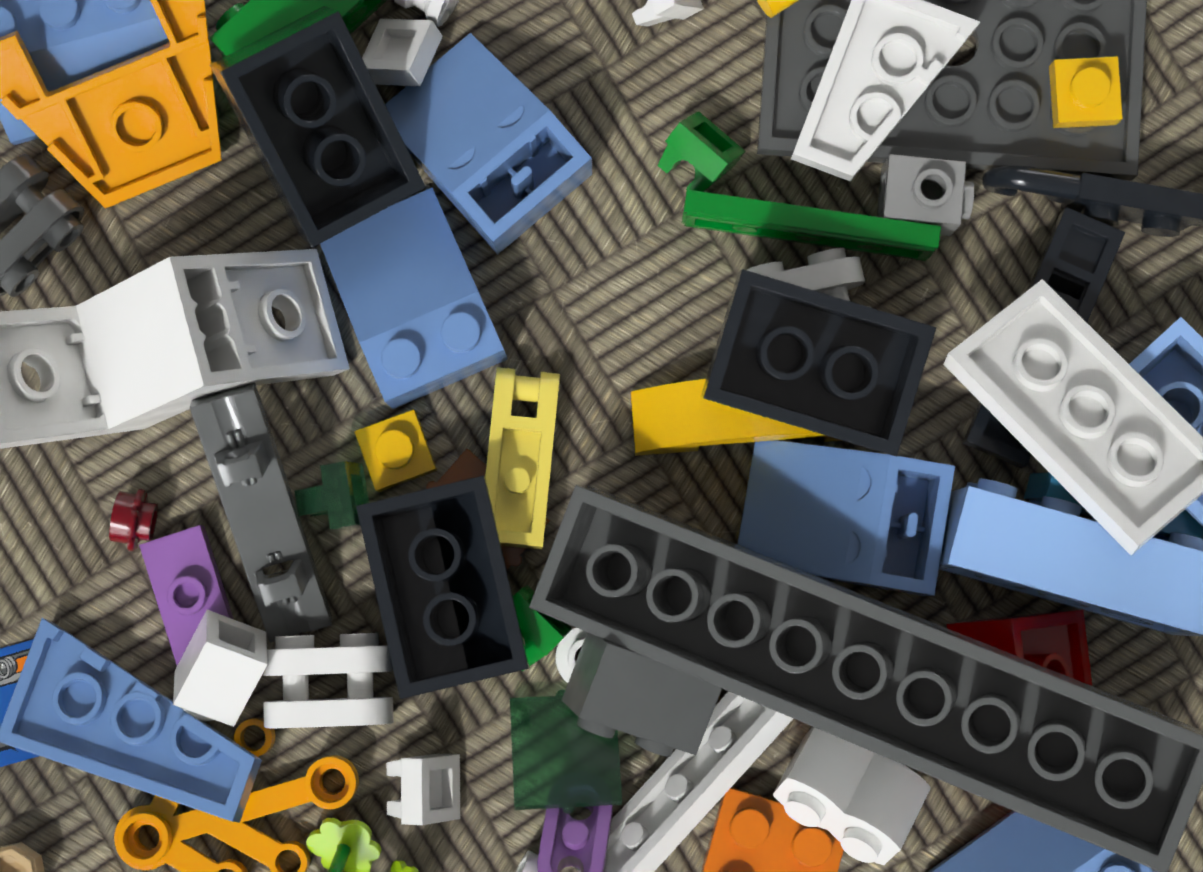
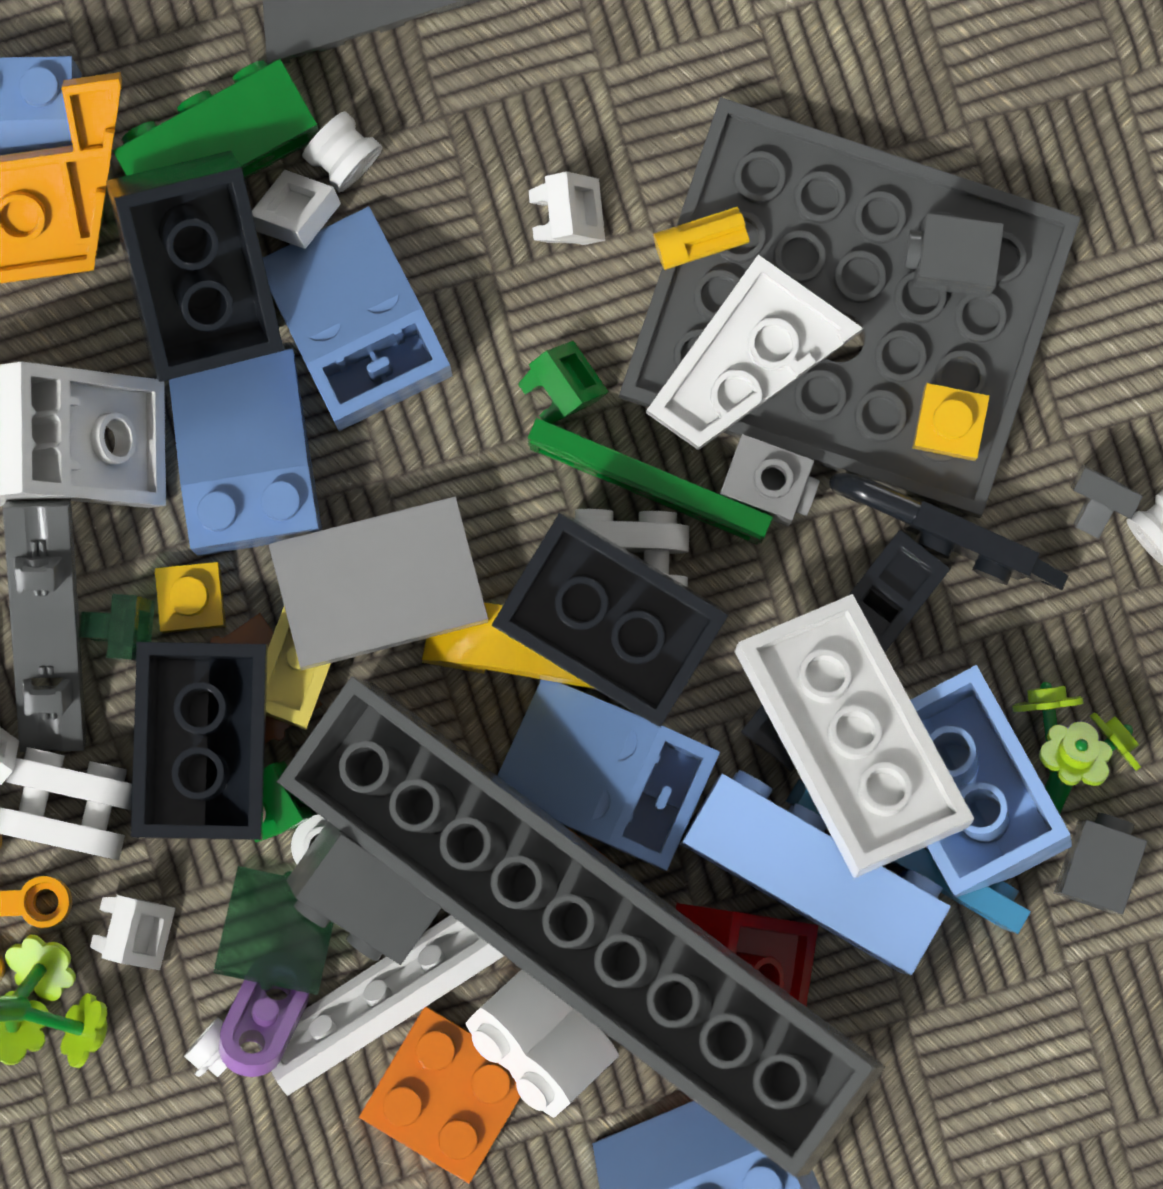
camera: 10 degrees right, 0 degrees up
(575, 389) = (378, 583): none -> light grey tile

